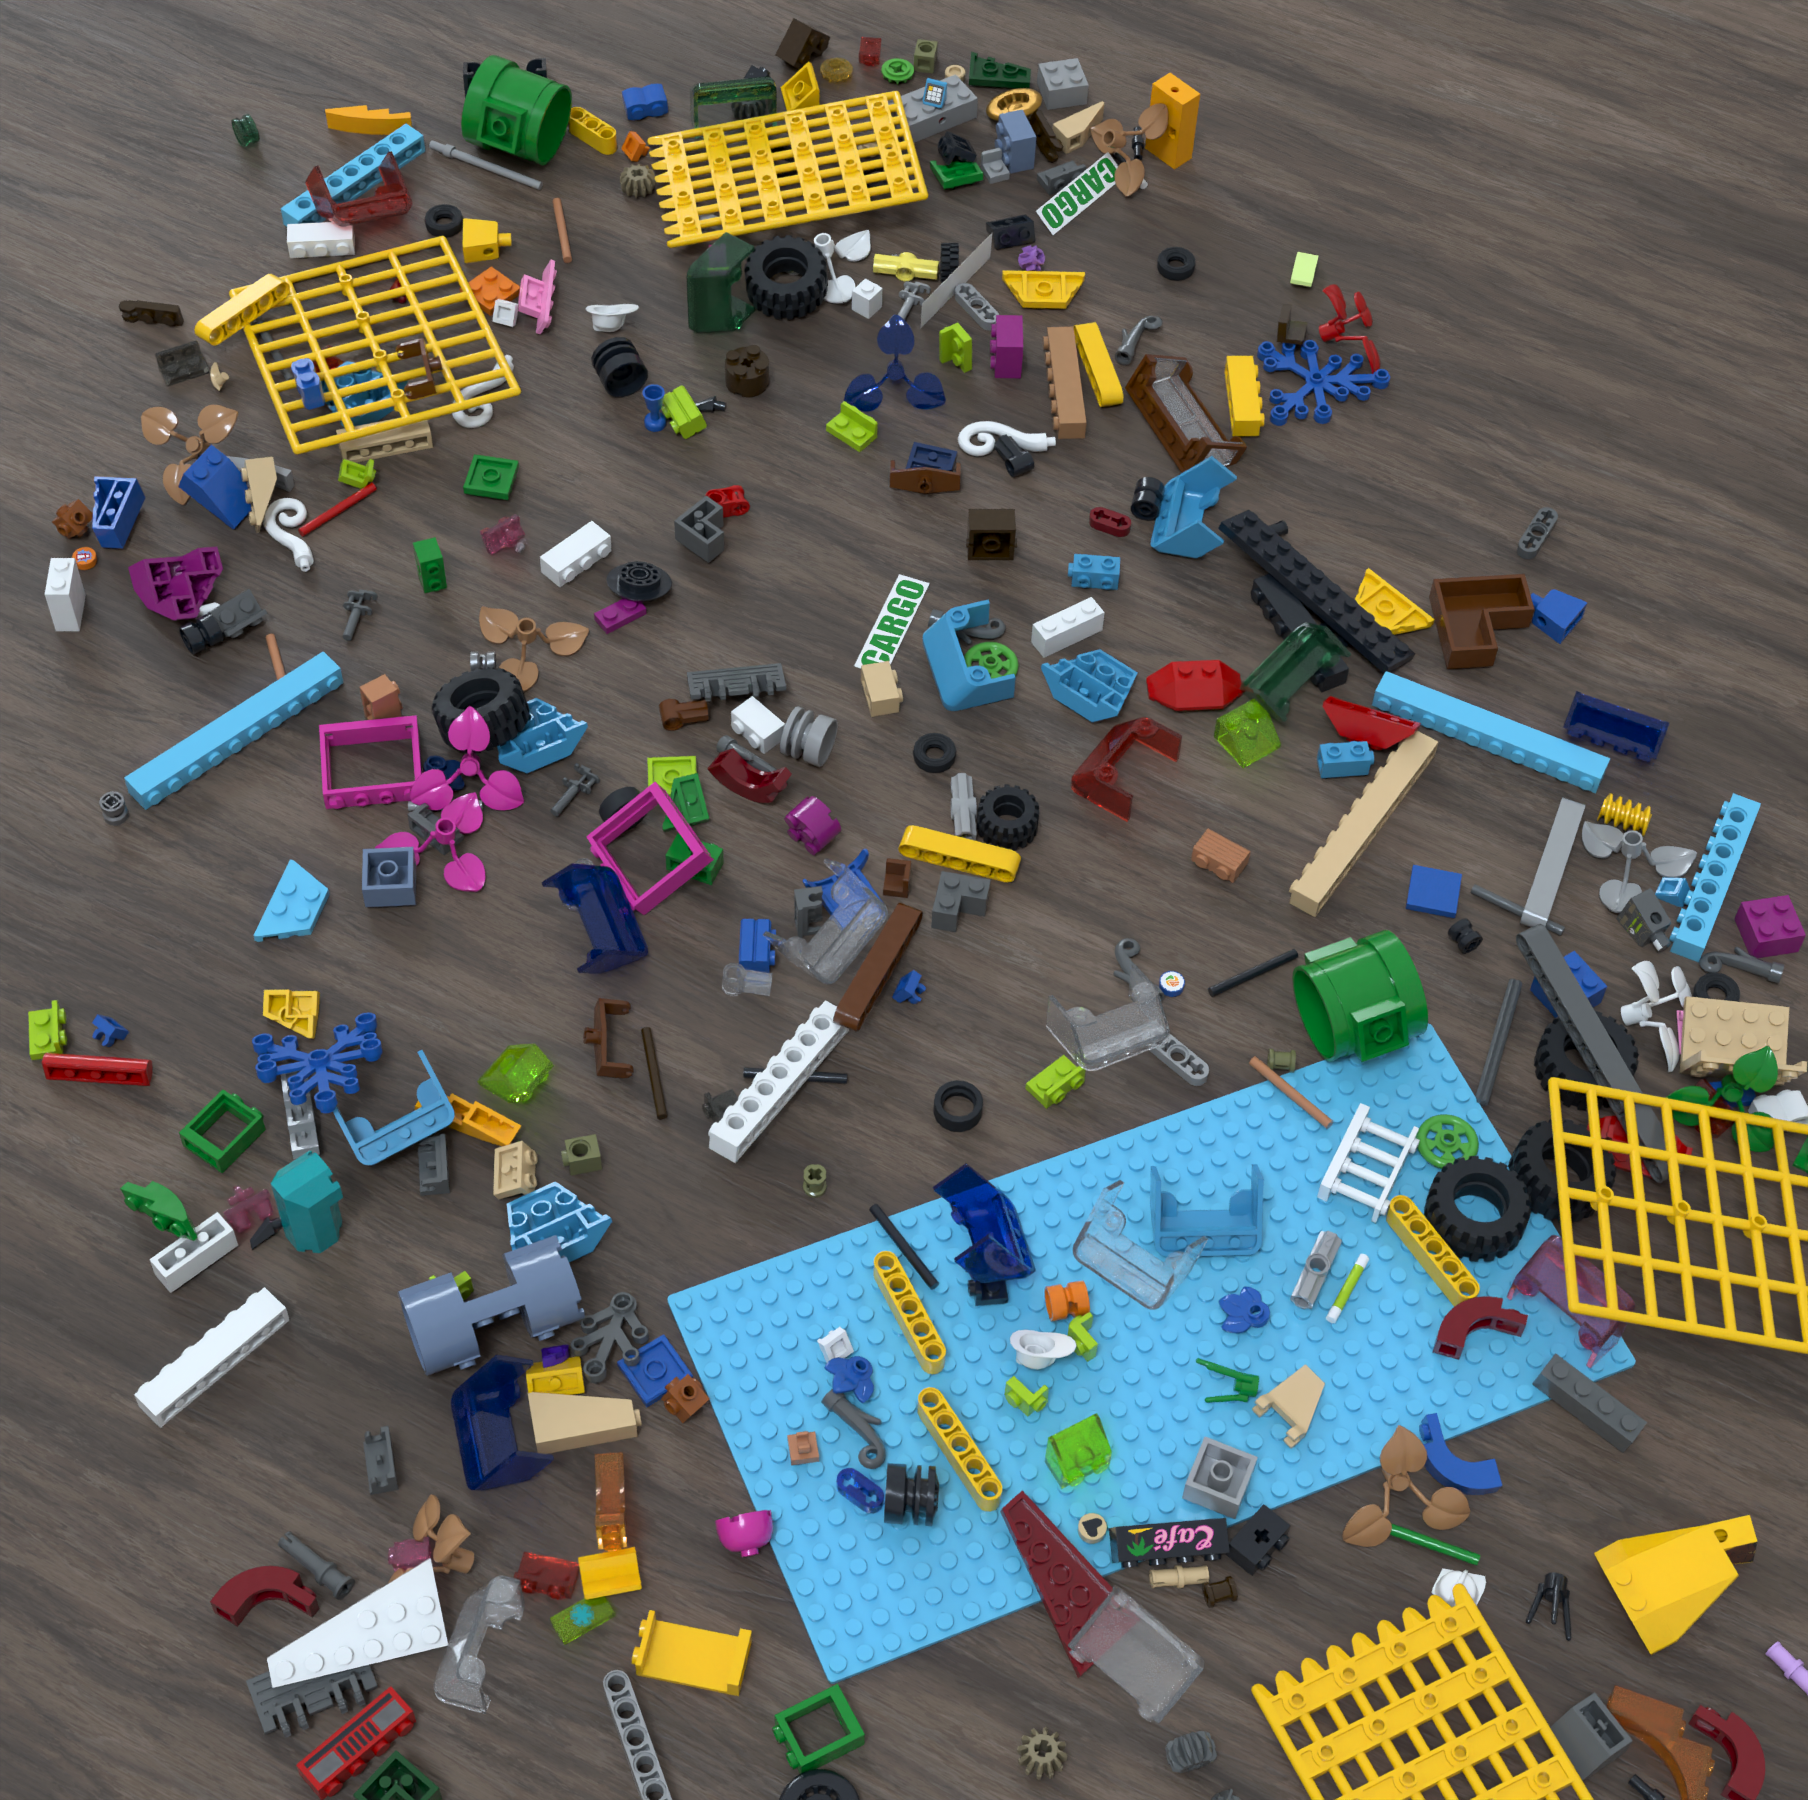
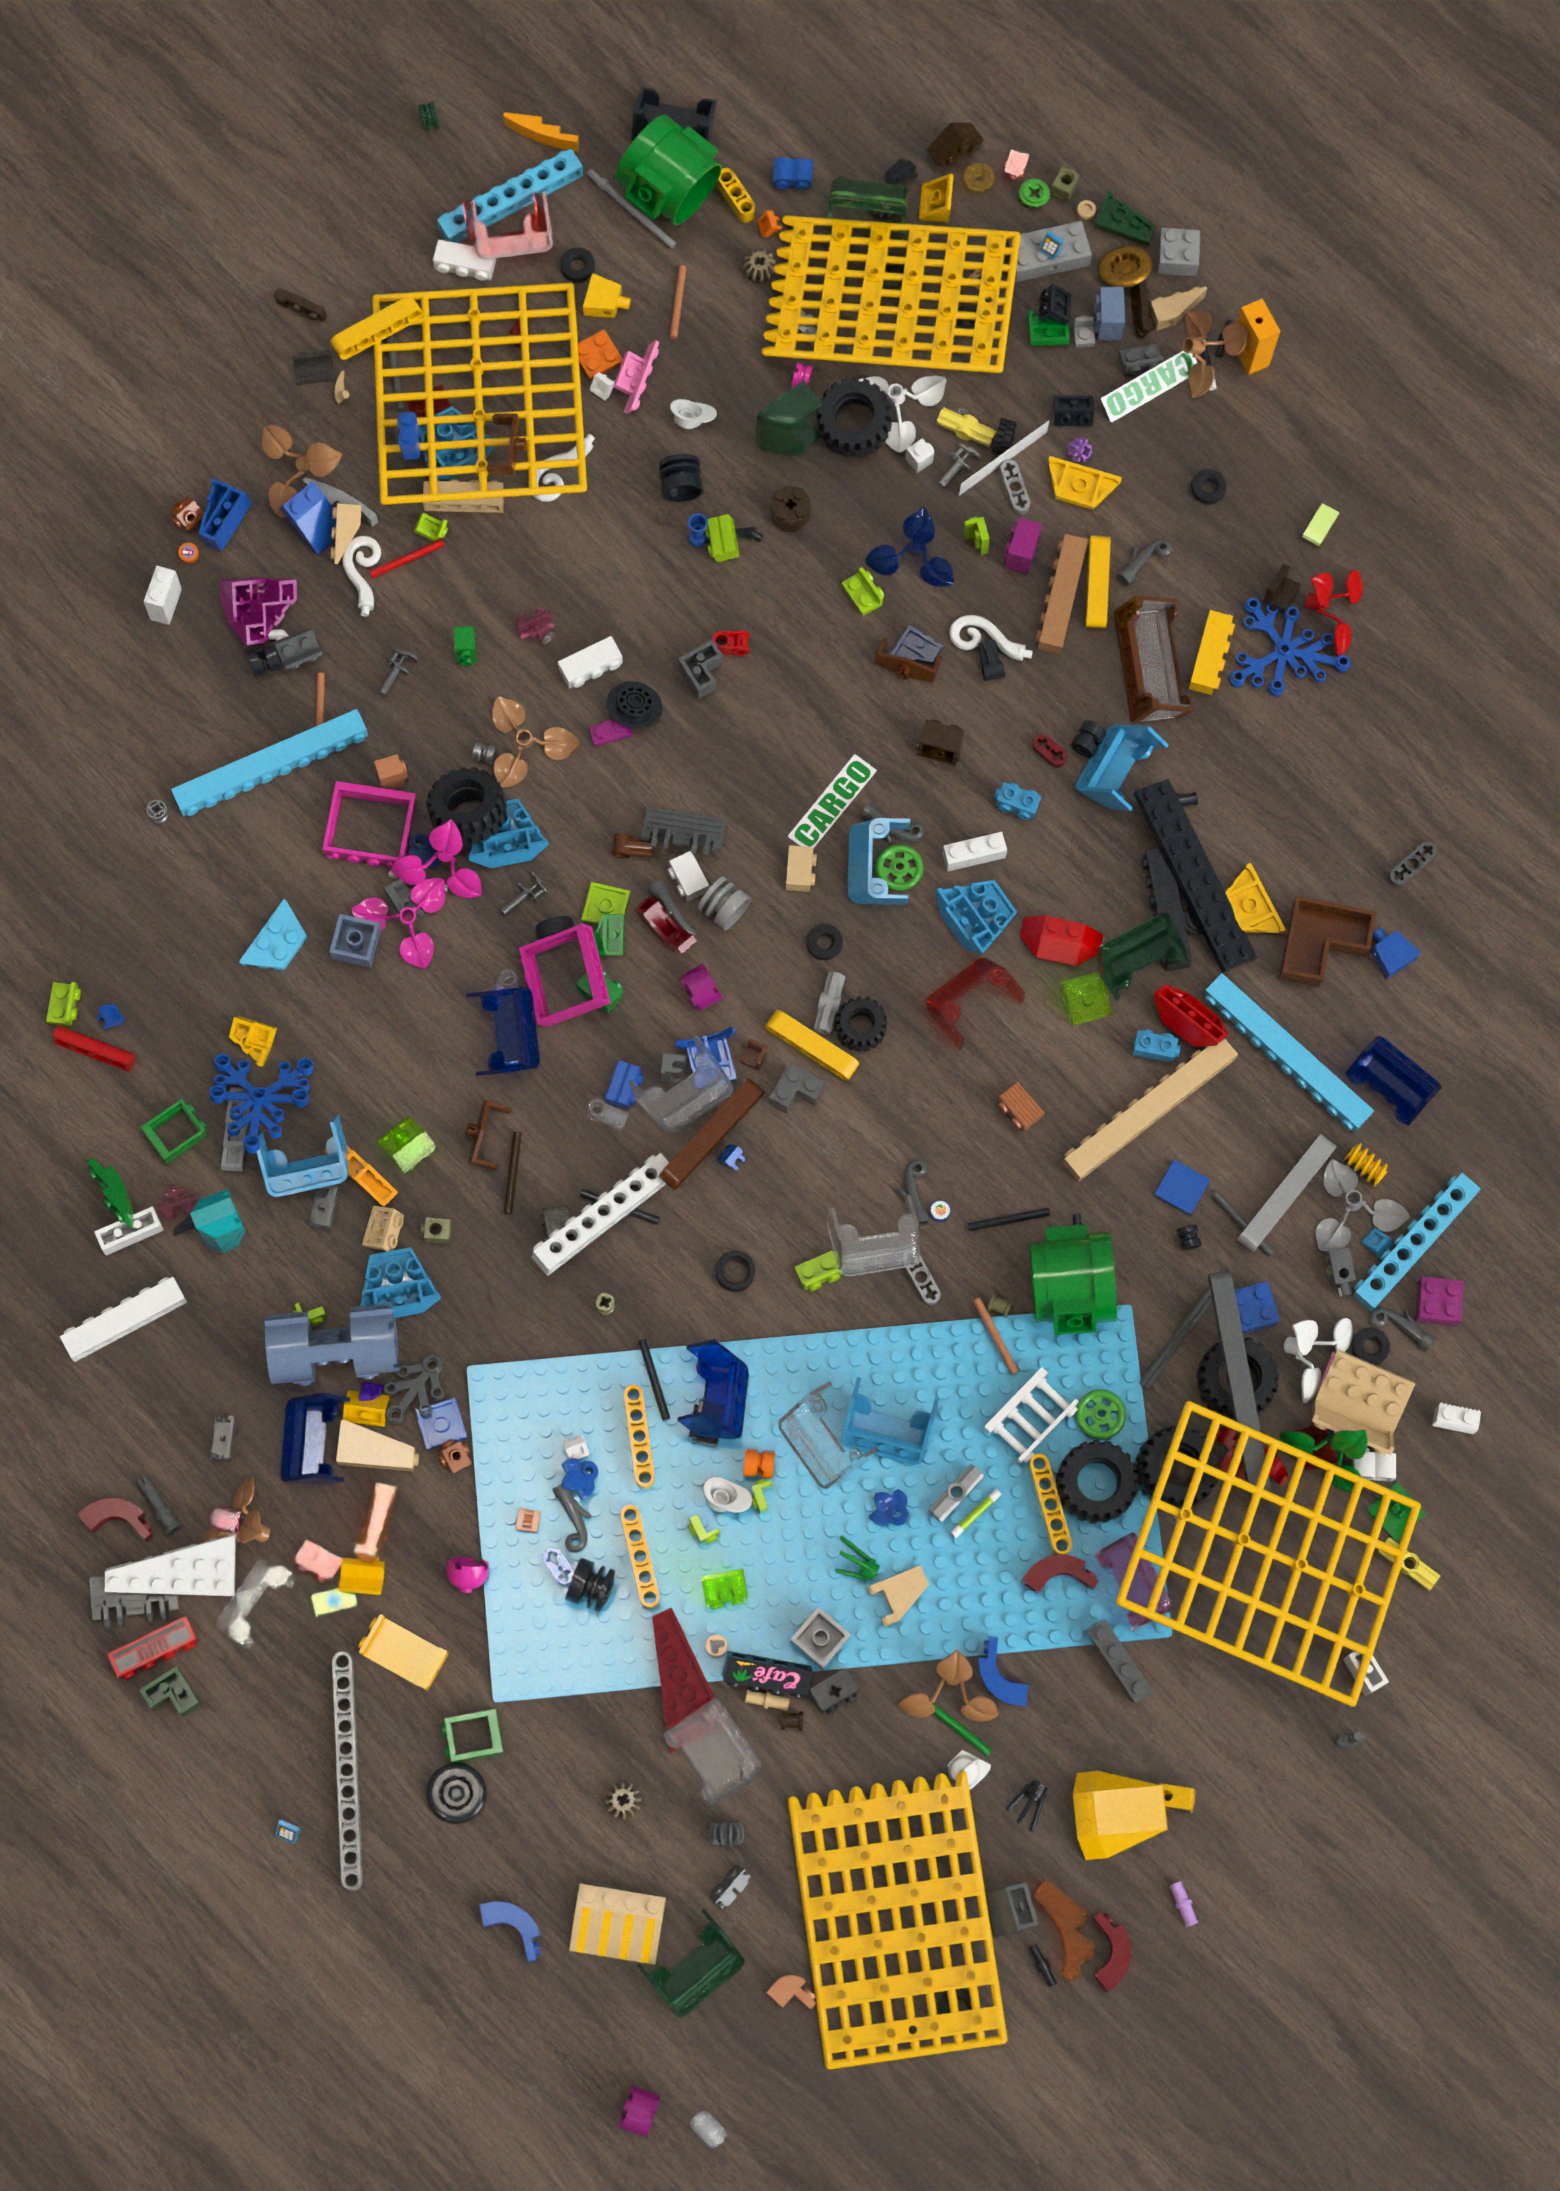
camera: 15 degrees right, 20 degrees up
(491, 477) = (542, 561): green plate -> none

